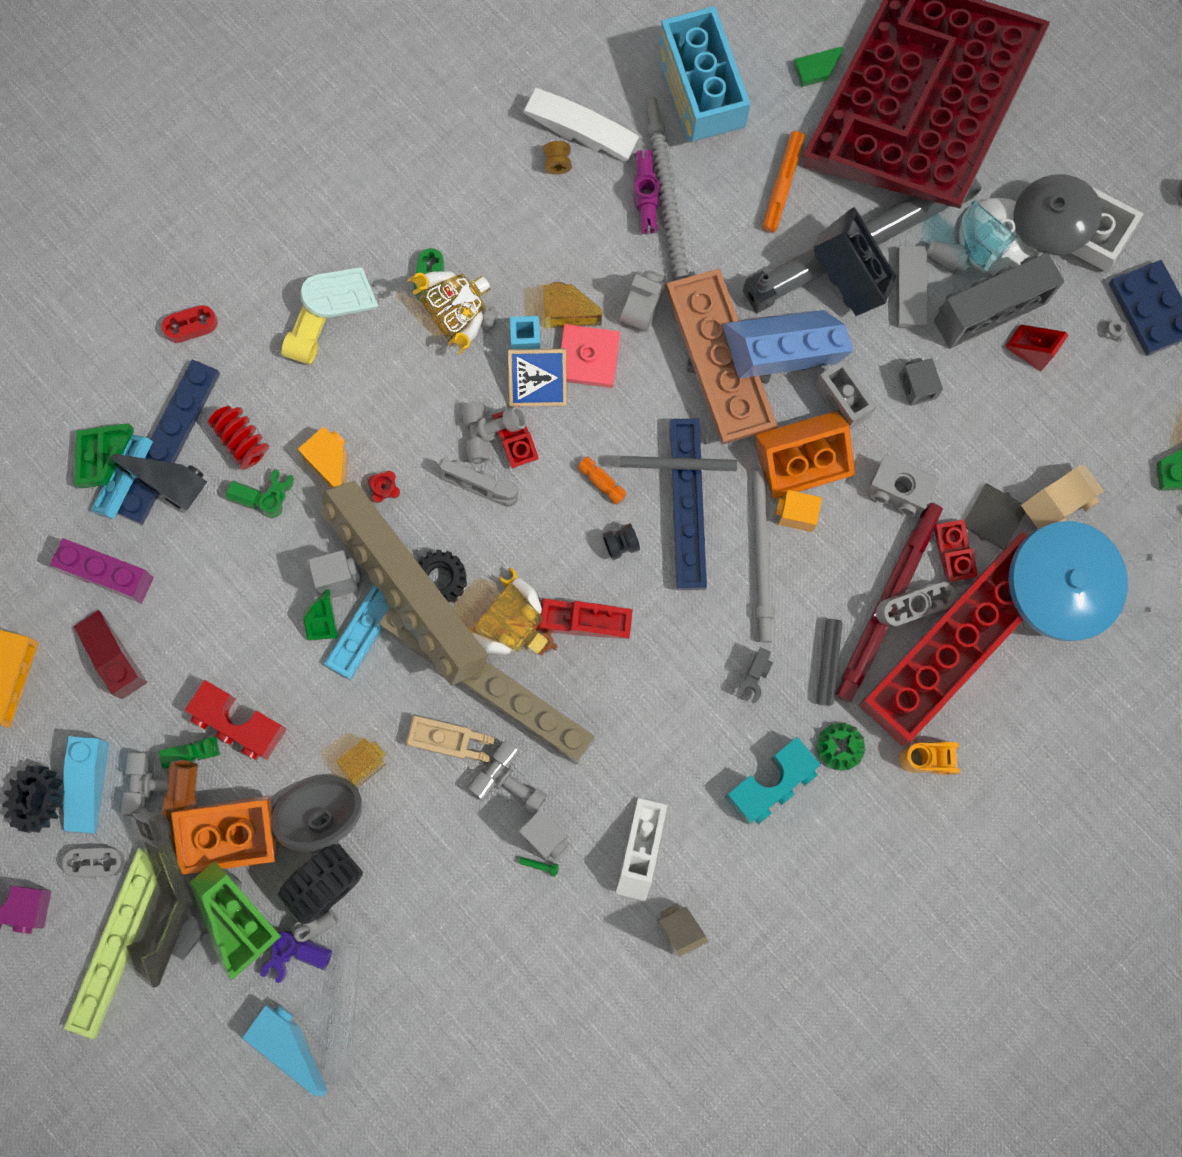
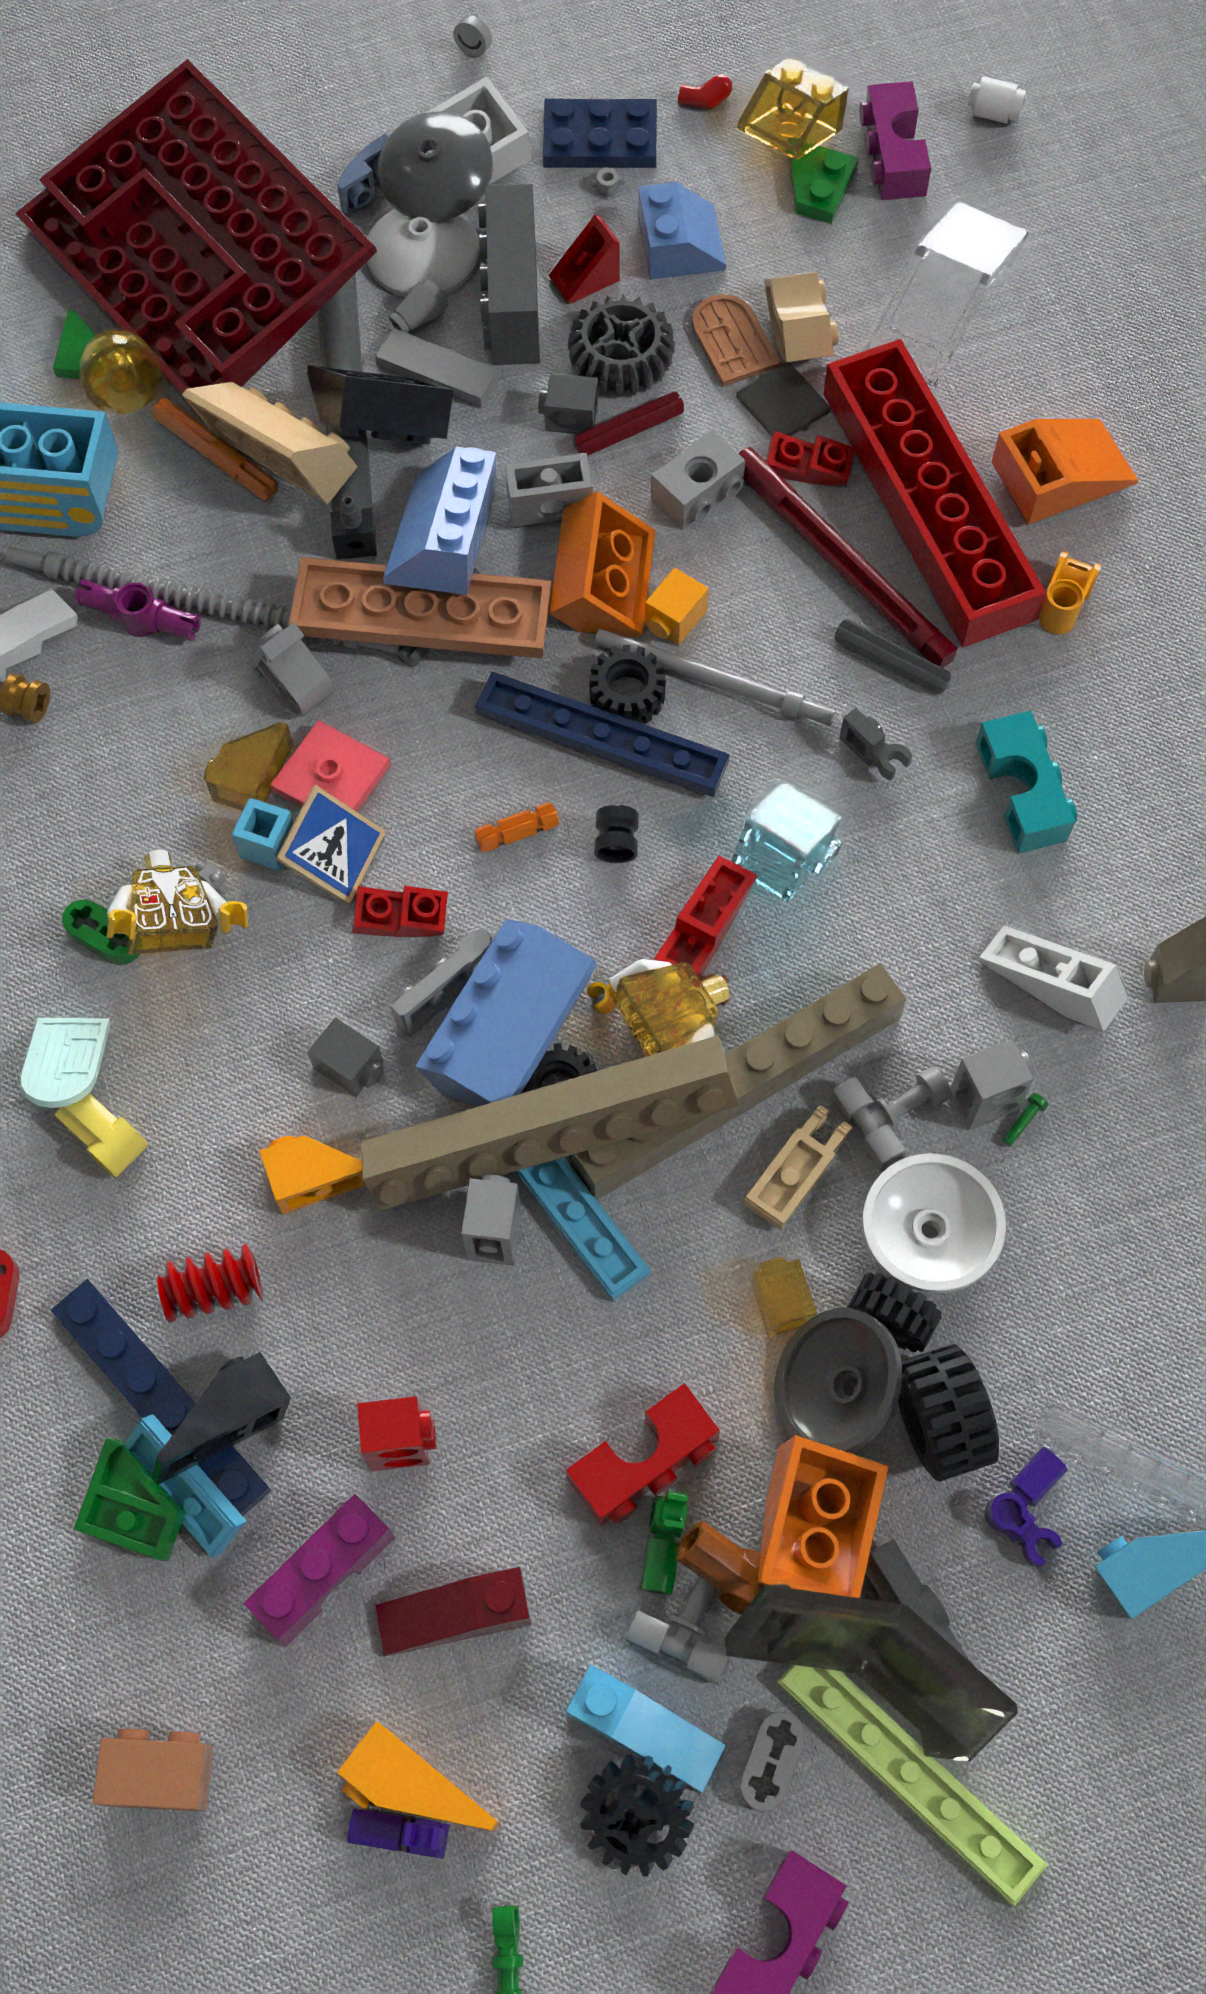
camera: 60 degrees left, 10 degrees down
(188, 576) = (395, 1433): none -> red brick
(232, 921) = (953, 1562): bright green wedge -> none
(269, 502) = (332, 1285): green bar -> none
(313, 929) = (1002, 1474): light grey arm -> none
(320, 618) = (544, 1269): green tile -> none
(373, 830) = (899, 1308): none -> black tyre
(380, 479) = (378, 1102): red plate -> none
(406, 449) = (346, 1057): none -> dark grey brick
(417, 830) = (938, 1194): none -> white dish
(466, 527) = (506, 1015): none -> medium blue slope
(484, 430) = (371, 947): light grey bar -> none
(659, 646) = (787, 840): none -> clear light blue plate
(678, 463) = (543, 719): dark grey bar -> none
(733, 488) = (628, 665): none -> black tyre
(796, 210) = (274, 437): none -> tan slope
(806, 97) = (119, 371): none -> clear yellow cylinder
(827, 747) = (1005, 702): green gear -> none
(904, 602) = (855, 535): light grey beam -> none
(926, 424) = (629, 423): none -> dark red axle
(985, 236) = (421, 250): clear light blue slope -> none
(1004, 403) = (623, 333): none -> dark grey gear
(1027, 171) = (357, 181): none -> sand blue slope
(1029, 463) = (732, 339): none -> nougat window
(1030, 719) = (1059, 465): none -> orange slope
(1068, 581) = (914, 341): dark azure dish -> none
(1095, 393) = (678, 231): none -> medium blue slope

